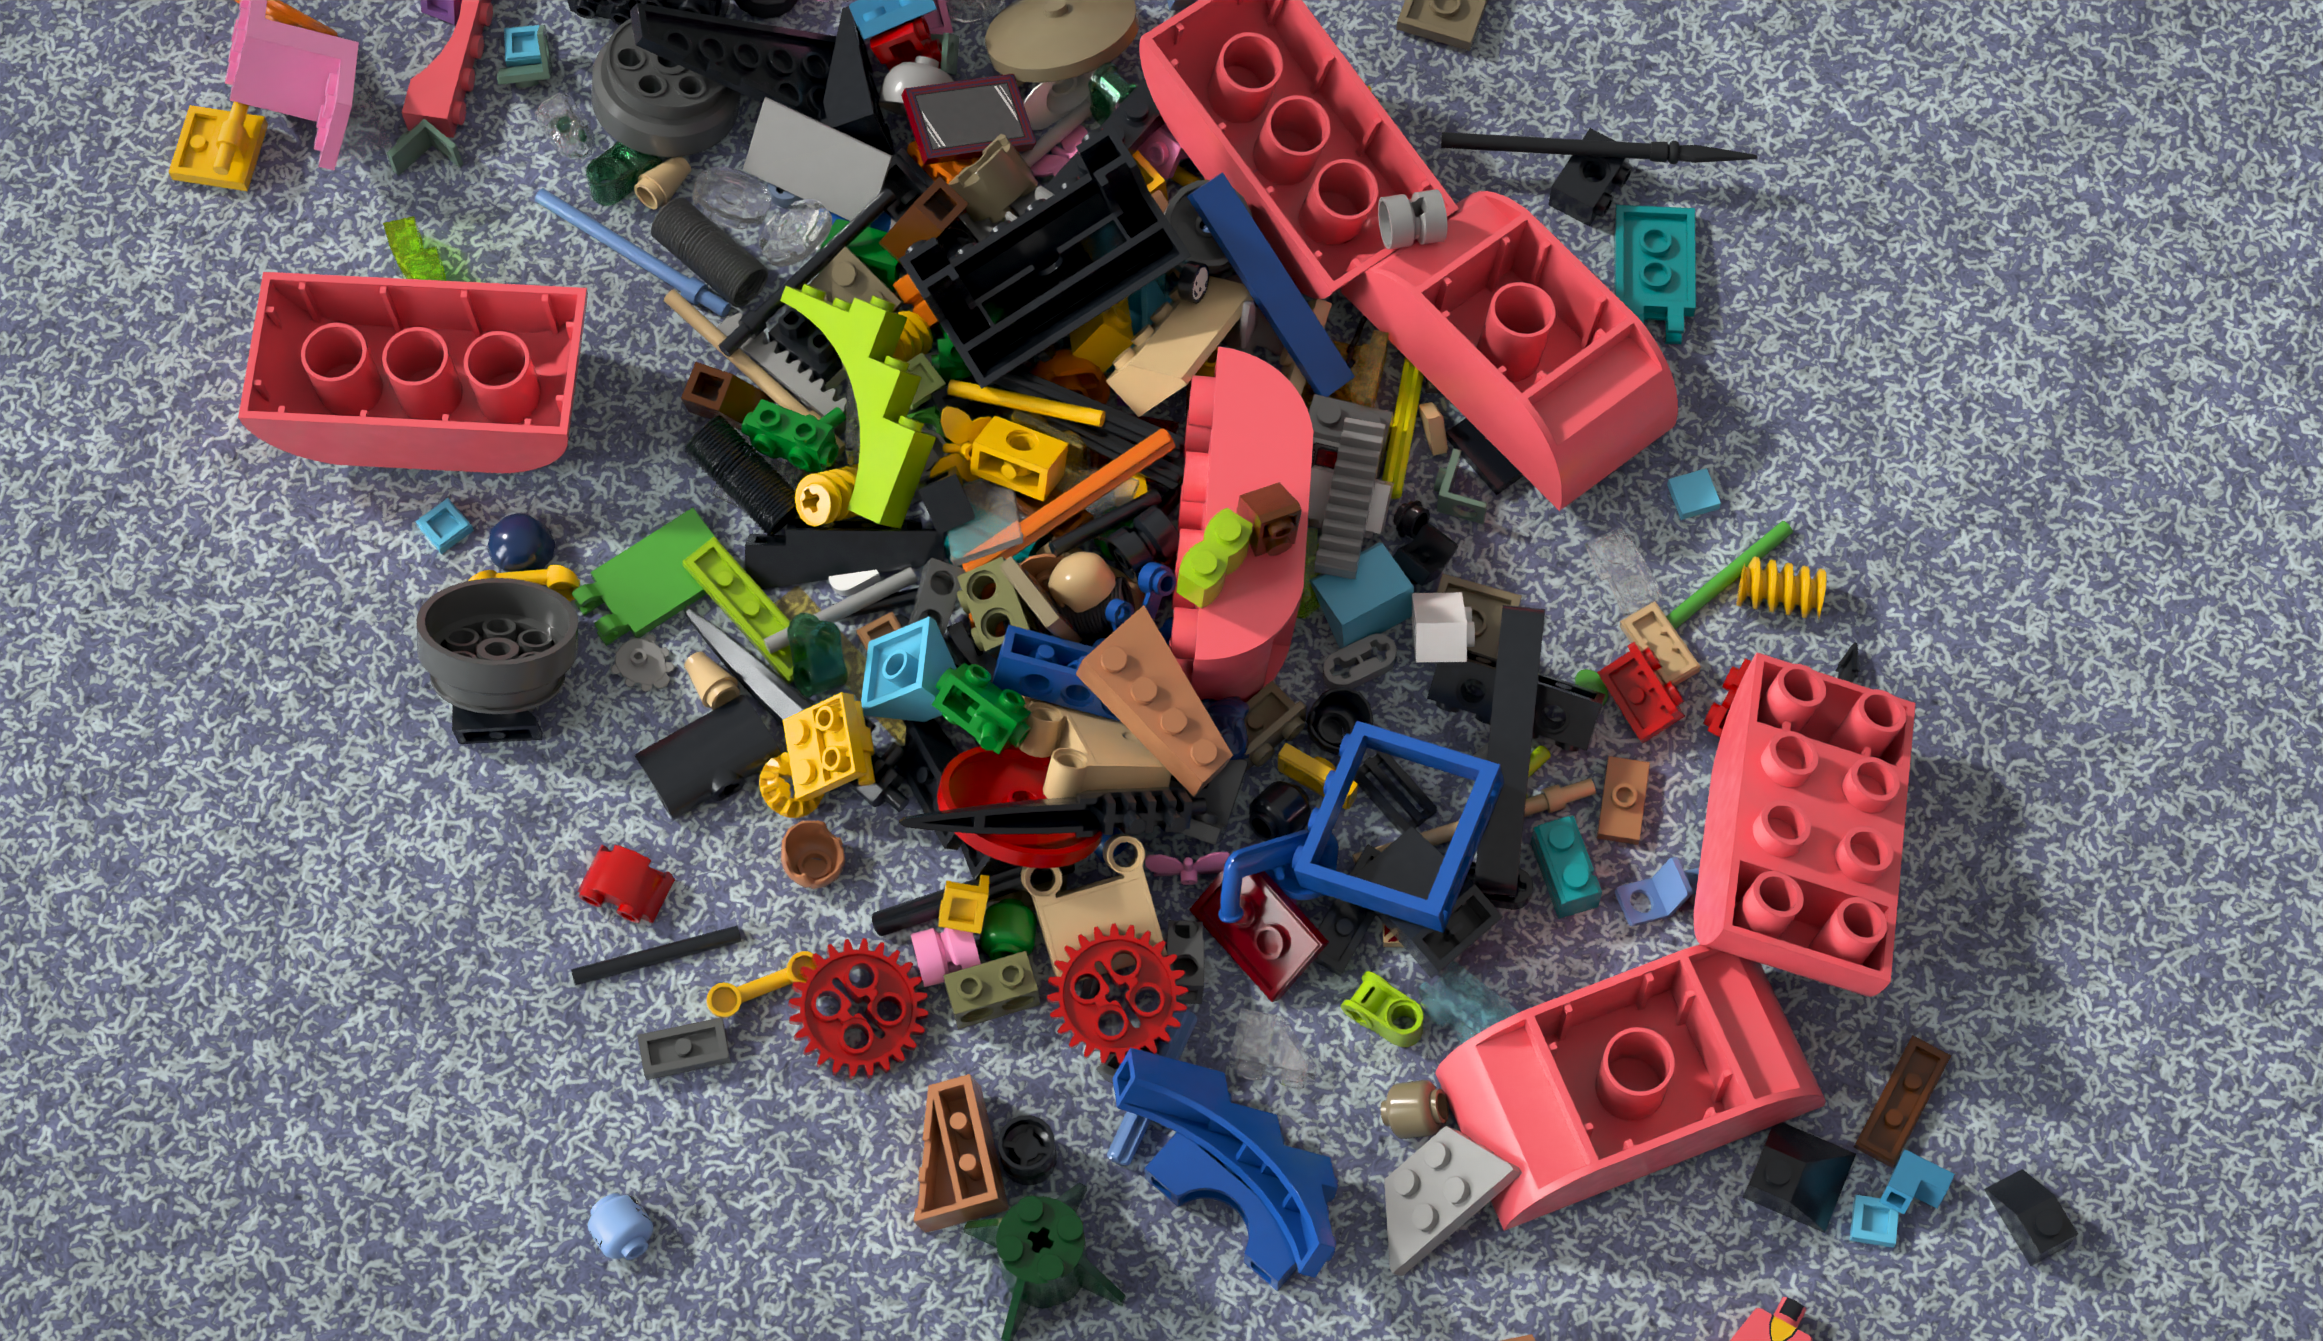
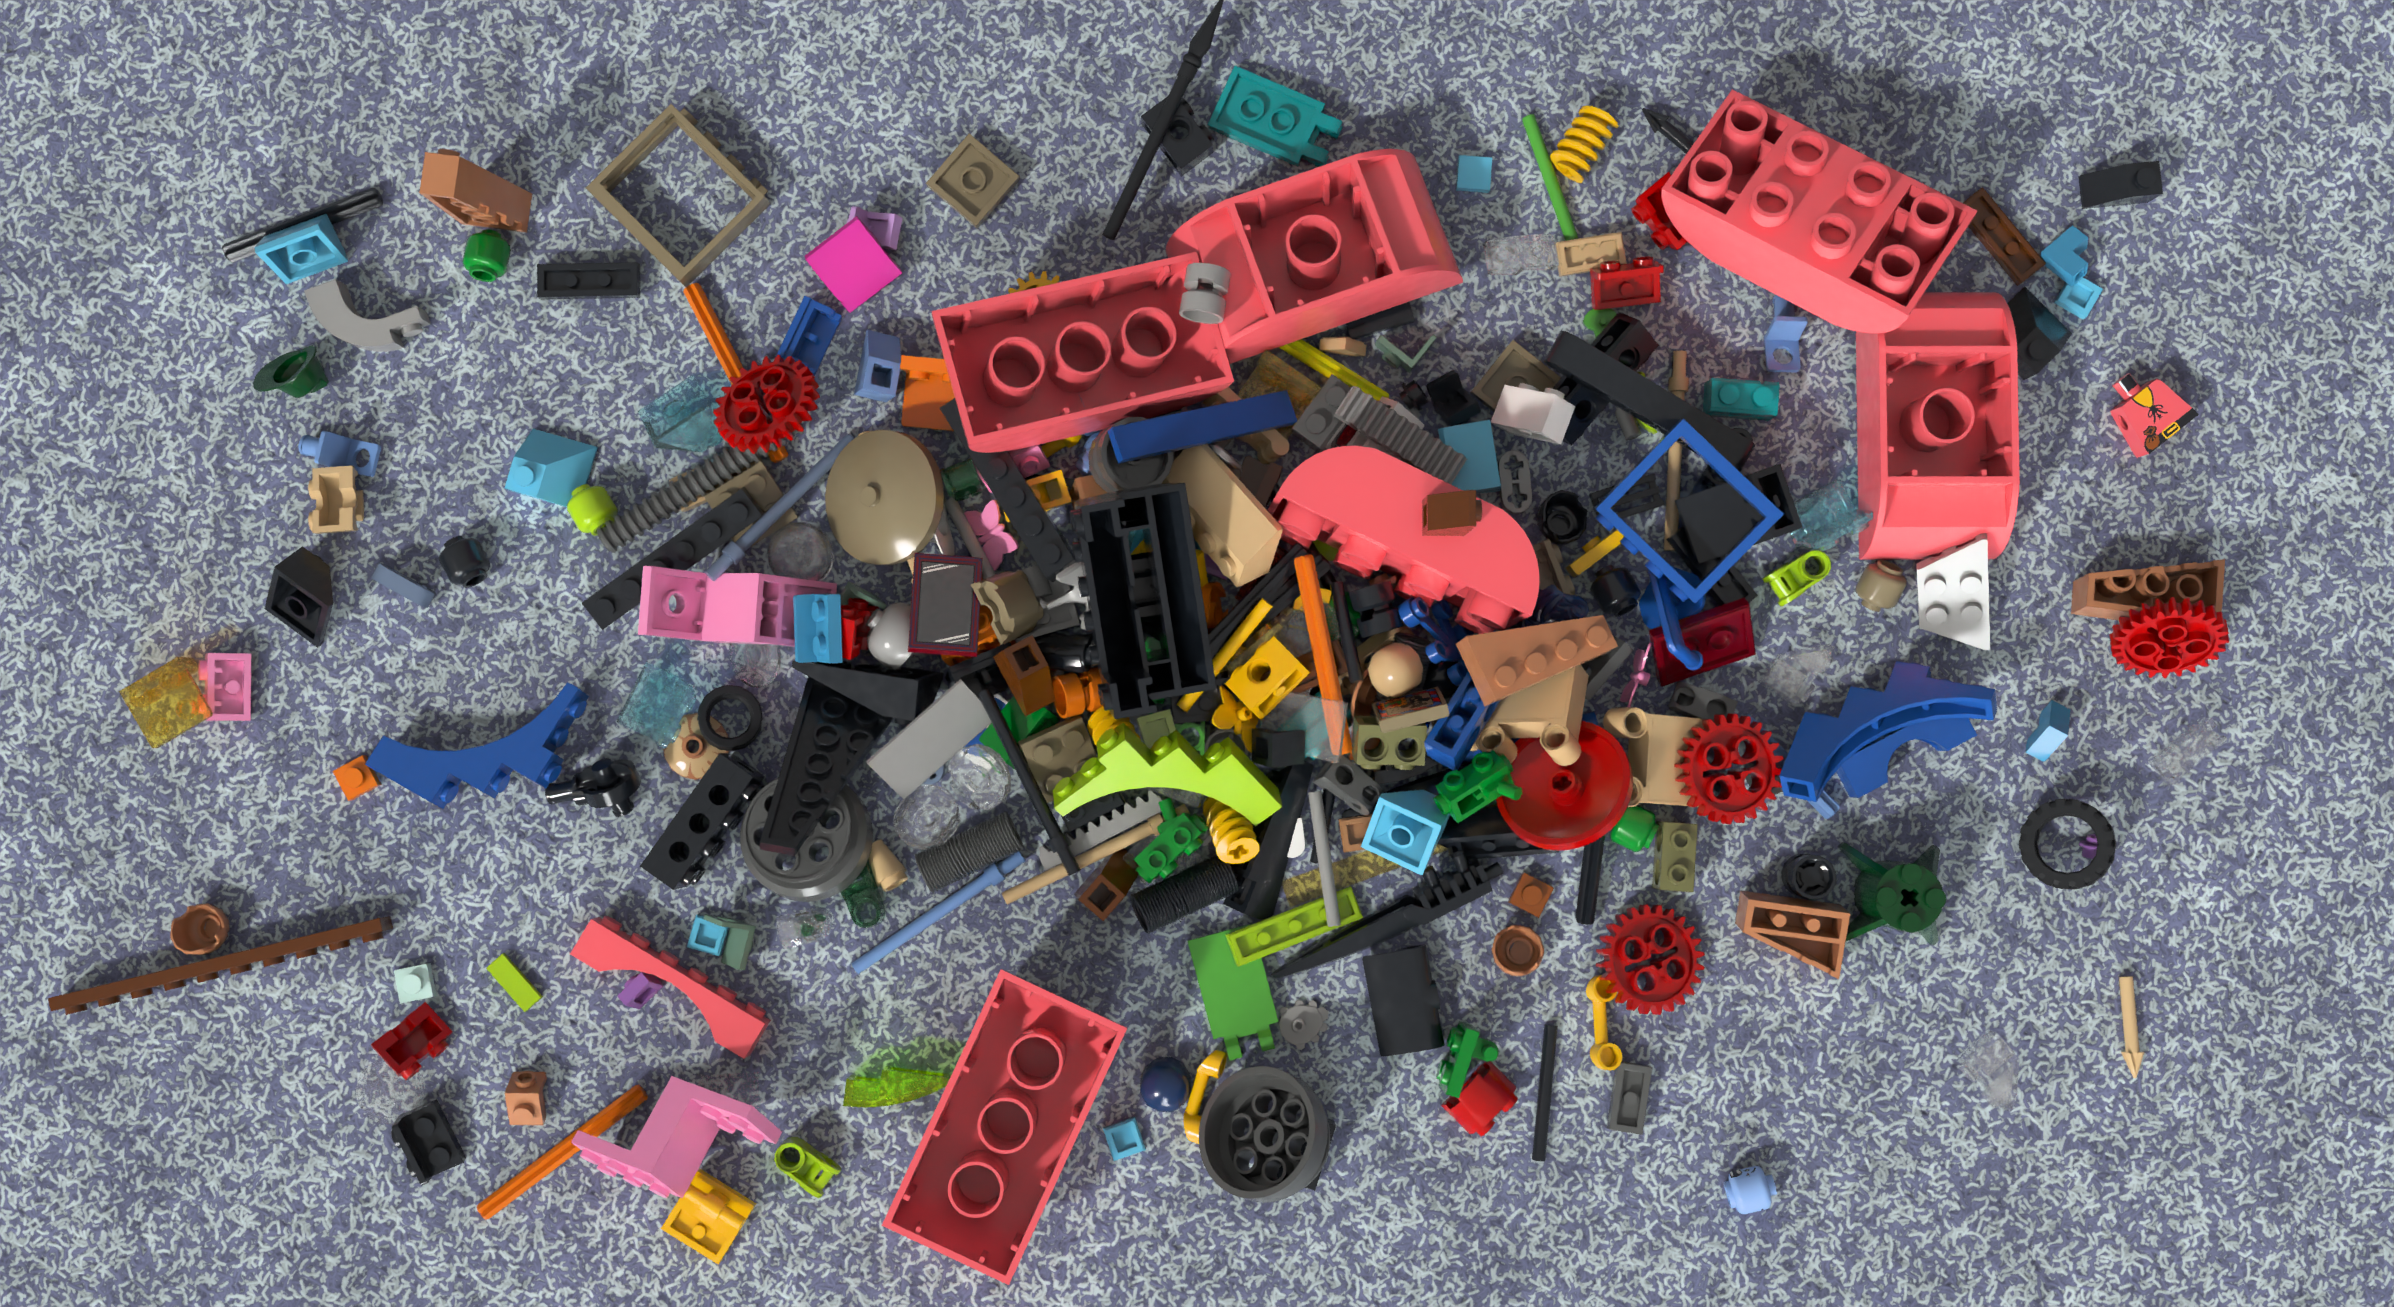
camera: 70 degrees left, 20 degrees up
(303, 224) = (808, 1166): none -> lime piece
(417, 142) = (770, 1058): sand green bracket -> none
(666, 828) = (1463, 1045): none -> green plate
(711, 680) = (1343, 976): tan cone -> none
(777, 791) = (1437, 946): yellow gear -> none
(819, 658) = (1358, 892): clear green piece -> none
(829, 746) = (1447, 910): yellow plate -> none
(885, 854) = (1530, 894): none -> dark orange plate
(943, 953) = (1633, 879): bright pink wheel -> none
(964, 905) = (1618, 856): yellow panel -> none
(1085, 815) = (1600, 709): black piece -> none
(1193, 282) = (1176, 477): black tile -> none
(1218, 555) = (1470, 577): lime brick -> none
(1351, 350) = (1256, 382): black piece -> none
(1623, 800) = (1698, 334): medium nougat plate -> none

